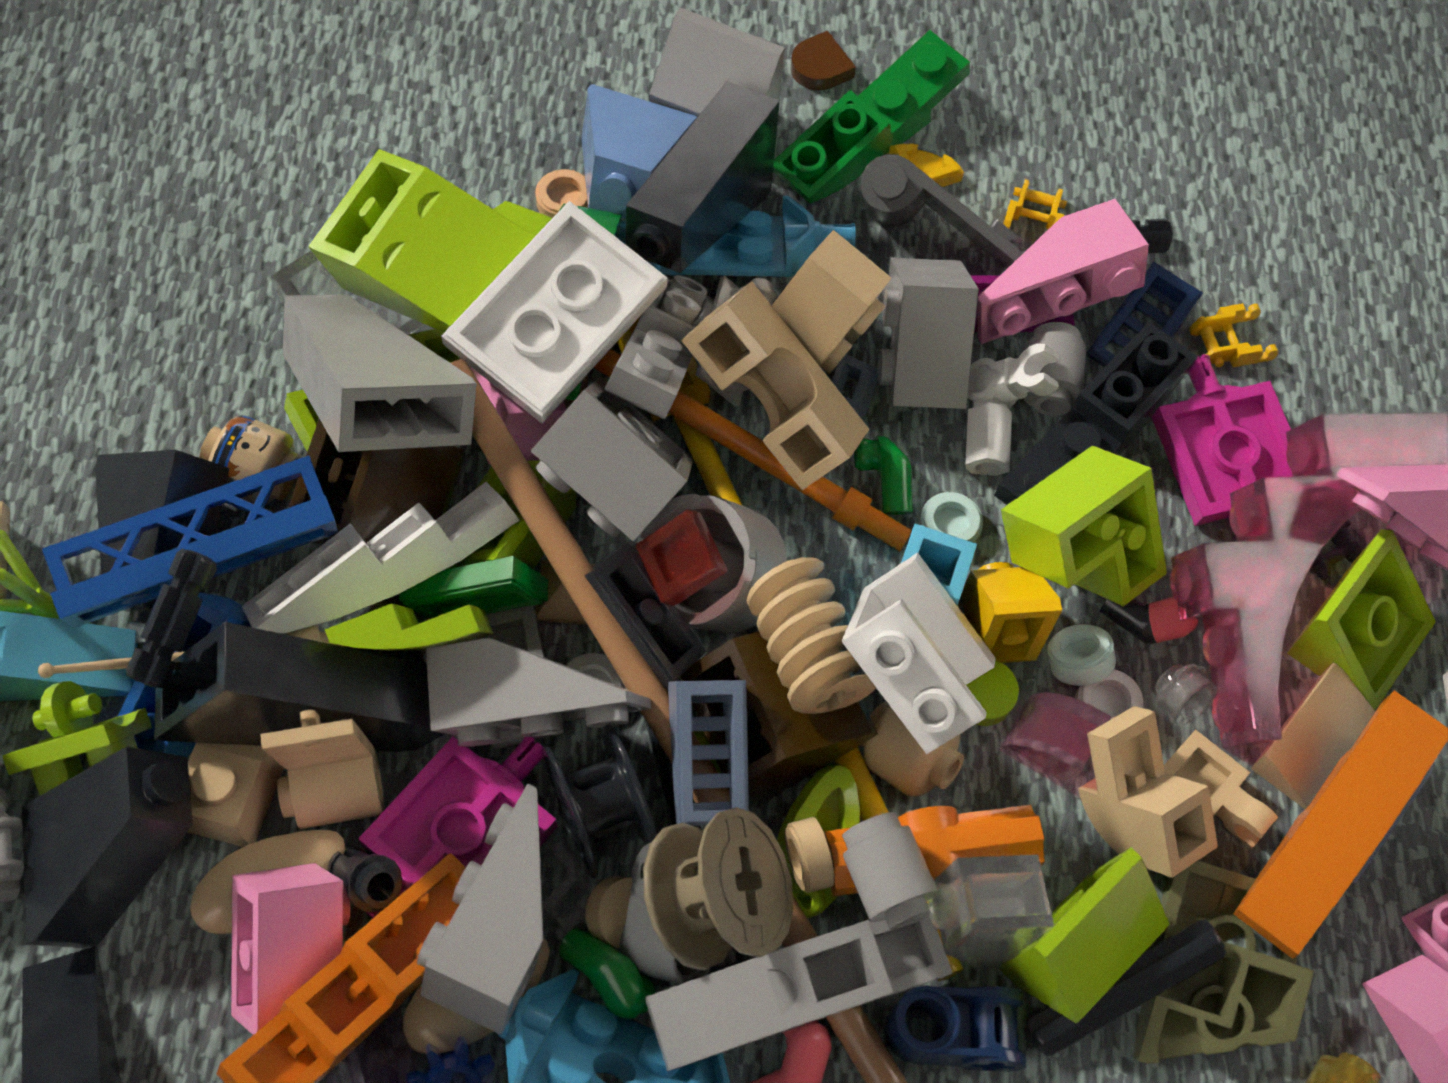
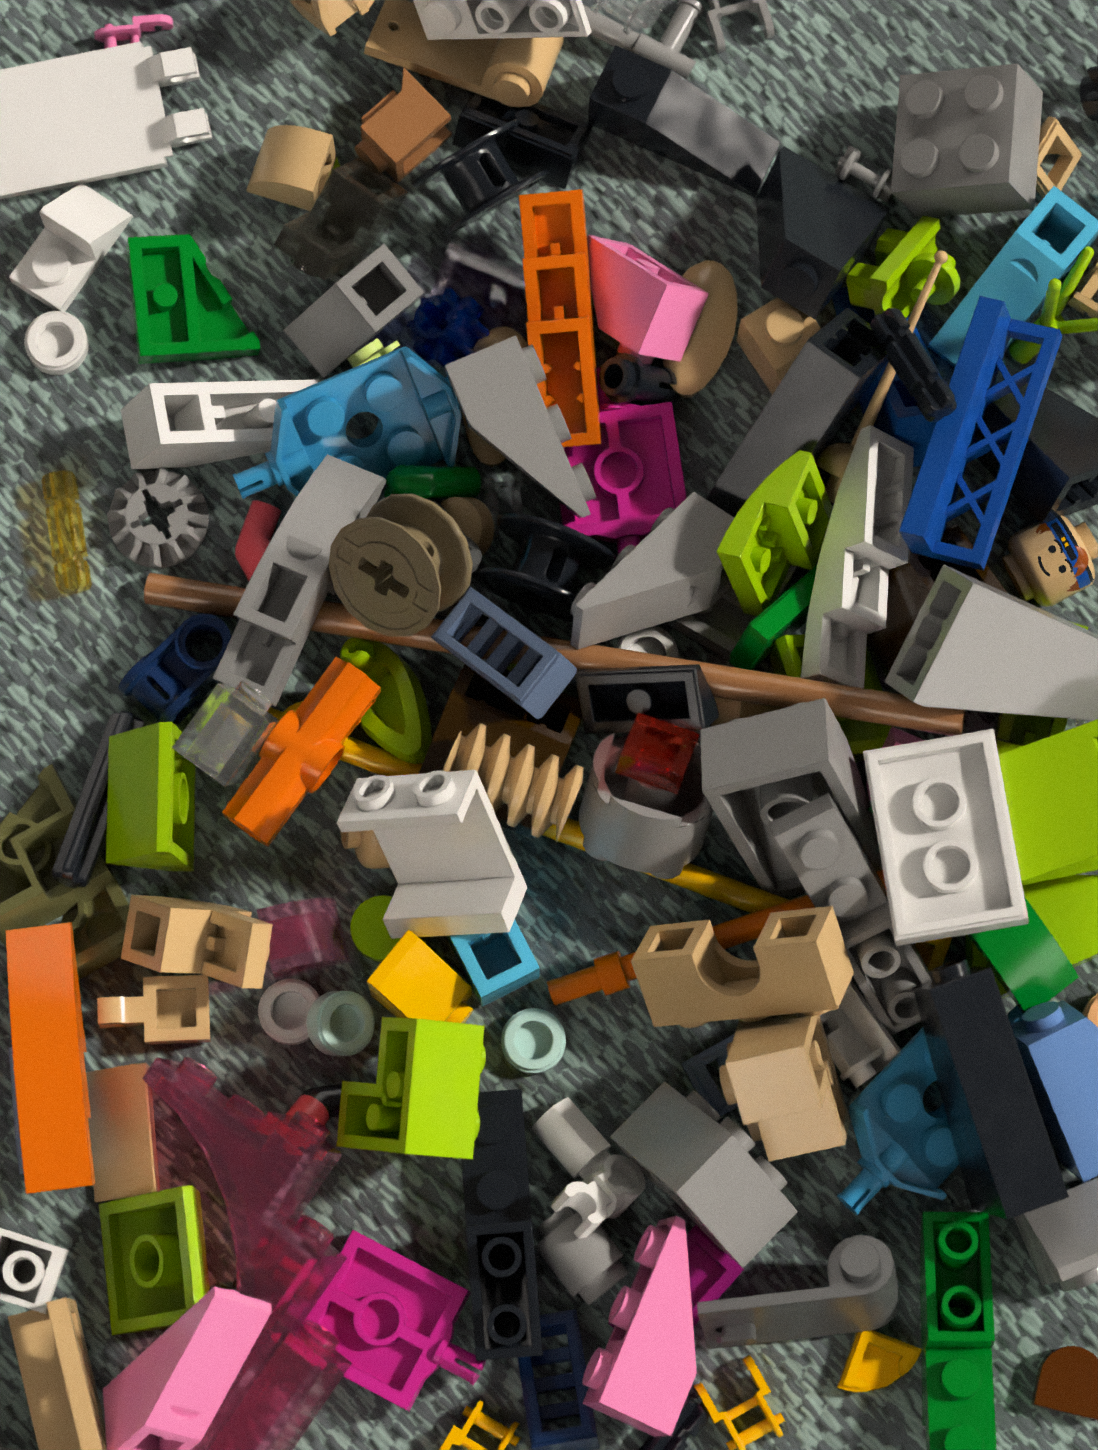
camera: 135 degrees right, 15 degrees up
(329, 769) = (727, 406): tan door -> none
(809, 855) = (376, 663): tan tile -> none
(889, 871) = (306, 678): light grey brick -> none
(892, 468) = (613, 1036): green arm -> none
(1184, 692) = (243, 1068): clear plate -> none

